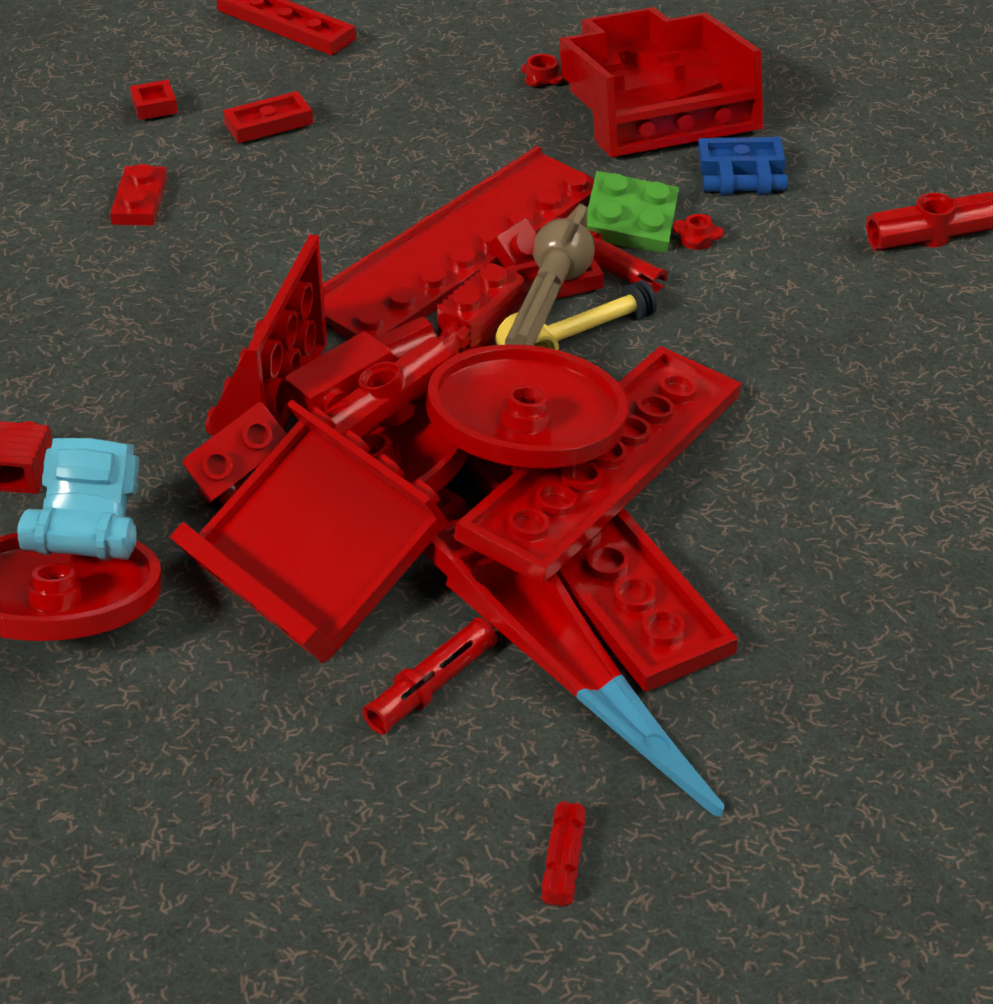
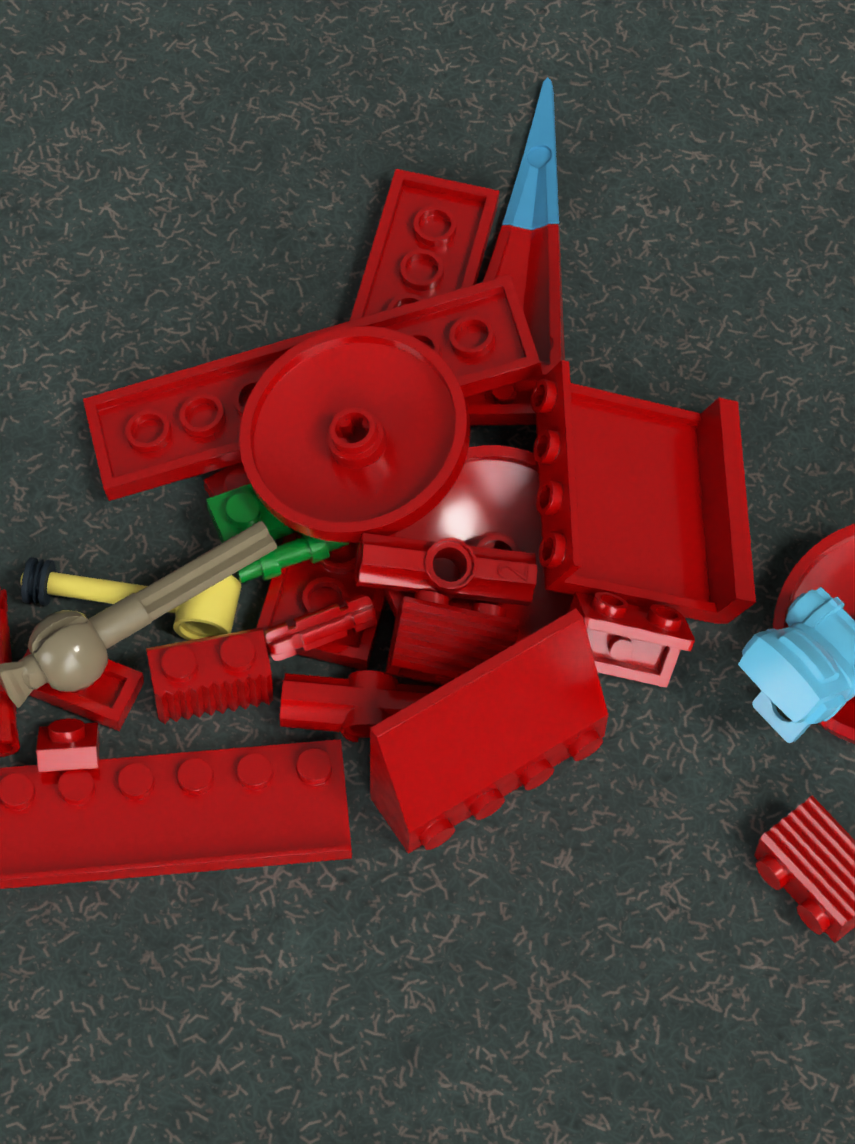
camera: 140 degrees left, 20 degrees up
(390, 708) = (648, 330): red pin -> none
(563, 854) = (690, 130): red axle -> none

